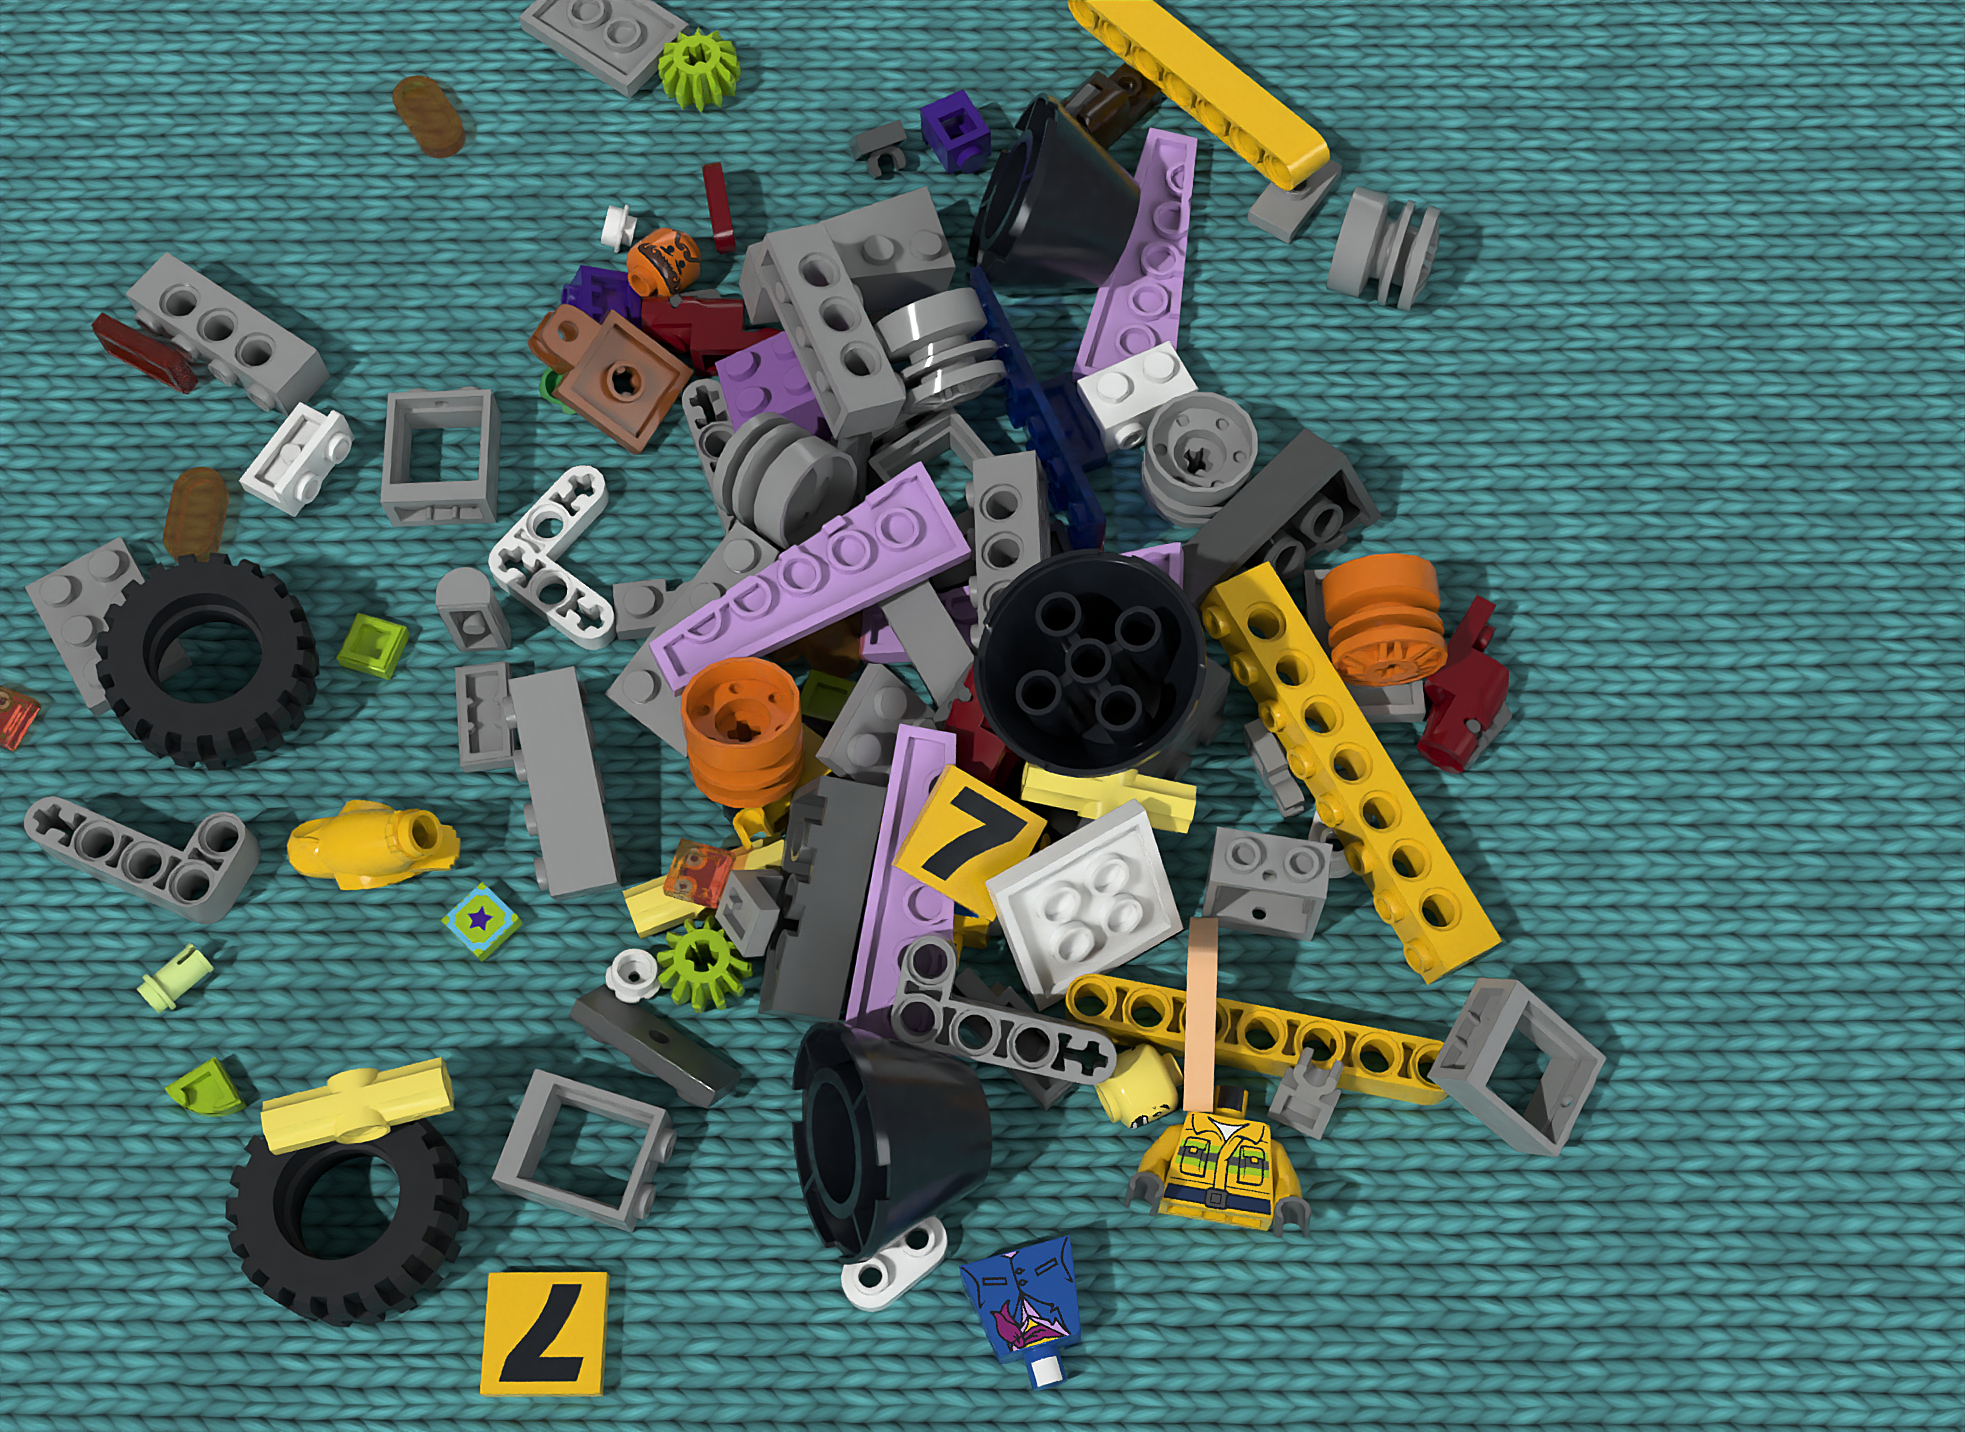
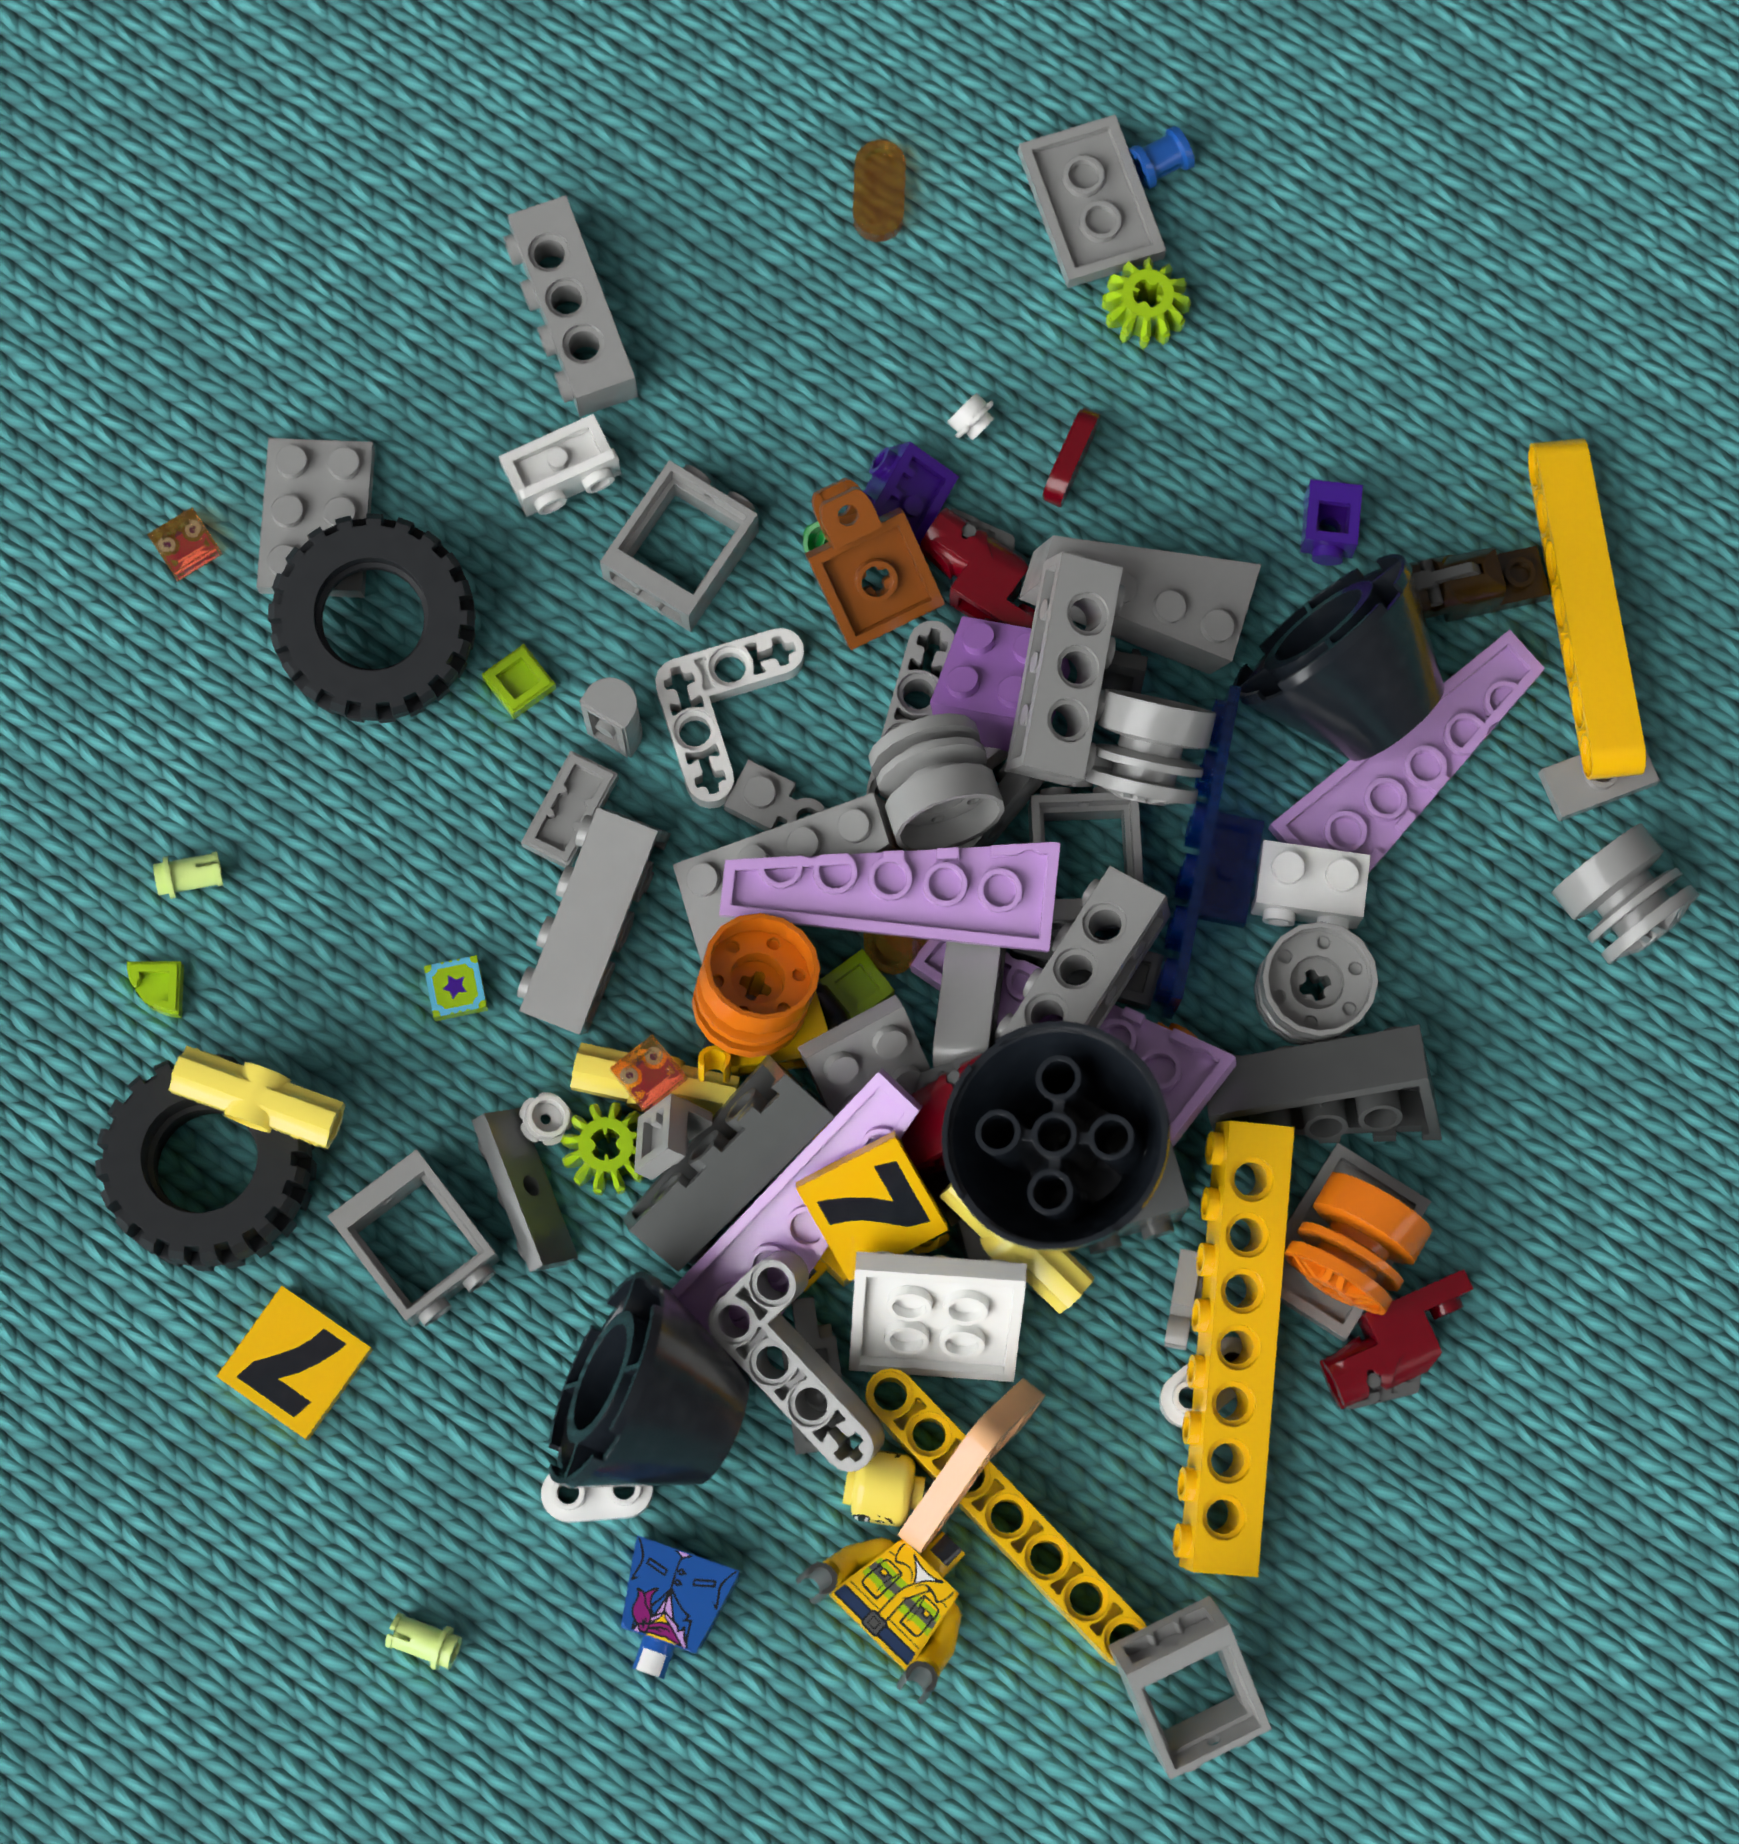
camera: 30 degrees right, 10 degrees up
(136, 853) = (218, 745): light grey beam -> none
(144, 354) = (492, 278): clear red tile -> none
(196, 514) = (445, 462): clear orange tile -> none
(372, 845) = (406, 865): yellow animal -> none
(663, 263) = (984, 484): orange head -> none
(877, 143) = (1255, 482): dark grey tile -> none
(1288, 897) = (1109, 1401): light grey window -> none
(1307, 1096) = (1007, 1591): light grey plate -> none

